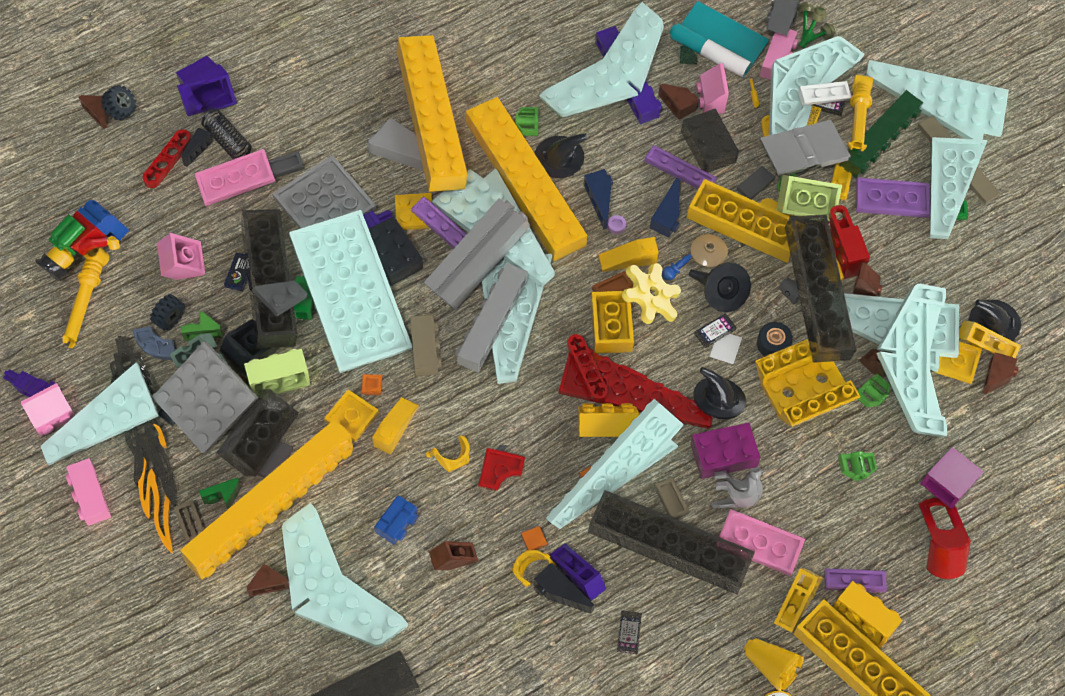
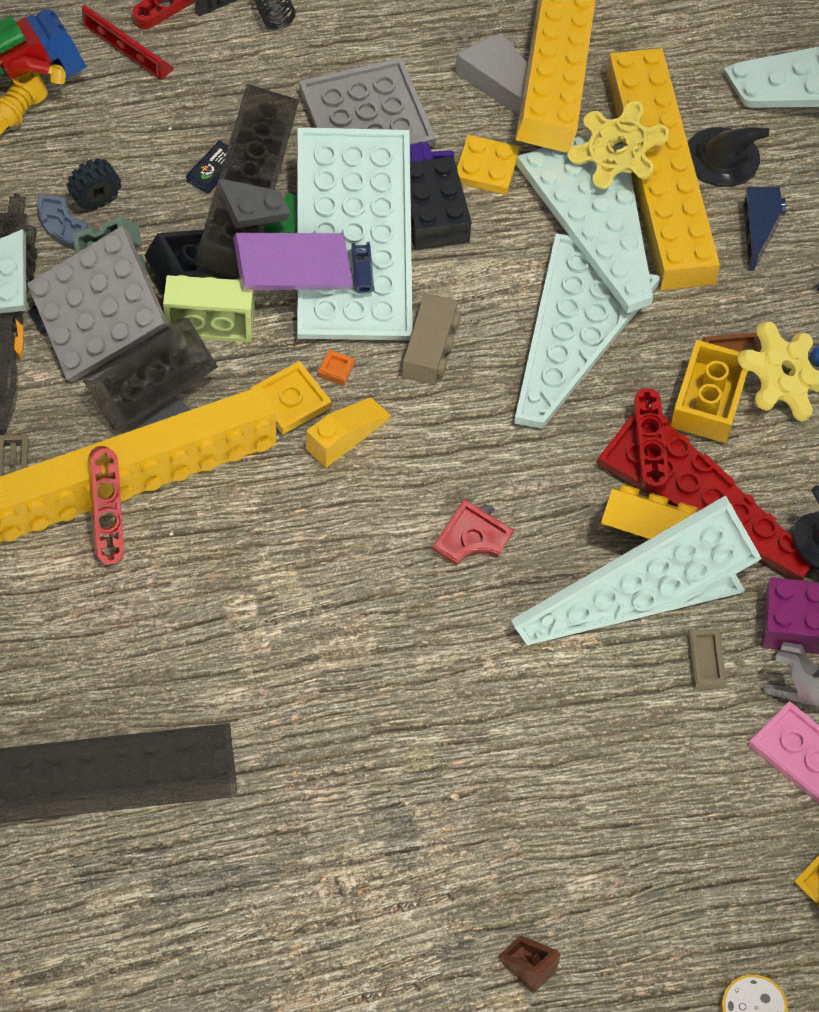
camera: 20 degrees right, 5 degrees down
(147, 203) = (125, 44): none -> red slope
(180, 257) = (141, 123): bright pink slope -> none
(207, 326) = (140, 215): bright green slope -> none
(227, 490) = (69, 435): green slope -> none
(234, 177) = (257, 46): bright pink tile -> none
(263, 535) = (103, 505): none -> beam
(267, 581) = (83, 573): copper slope -> none
(286, 164) = (331, 52): dark grey tile -> none
(321, 326) = (292, 261): none -> medium lavender tile
(331, 596) = (159, 621): light aqua wing -> none
(366, 315) = (362, 268): none -> dark blue bar
(396, 520) = (297, 553): blue brick -> none
(438, 222) = (520, 196): medium lavender tile -> none
(450, 465) = (407, 507): yellow helmet -> none
(452, 555) = (358, 626): copper slope -> none
(477, 253) = (552, 239): light grey brick -> none
(486, 167) = (611, 132): none -> light yellow plate
(492, 317) = (539, 329): light grey brick -> none
(524, 560) = (460, 667): yellow helmet -> none
(527, 123) = (694, 95): bright green piece -> none
(534, 539) = (483, 646): orange tile -> none
(561, 590) = (493, 724): black slope -> none
(578, 571) = (531, 710): dark purple slope -> none
(616, 224) = (770, 269): lavender tile -> none
(629, 632) = (572, 819): clear smoke tile -> none
(637, 253) = (788, 311): yellow slope -> none
(671, 542) = (682, 714): clear smoke brick -> none
(773, 662) = (773, 934): yellow cone -> none

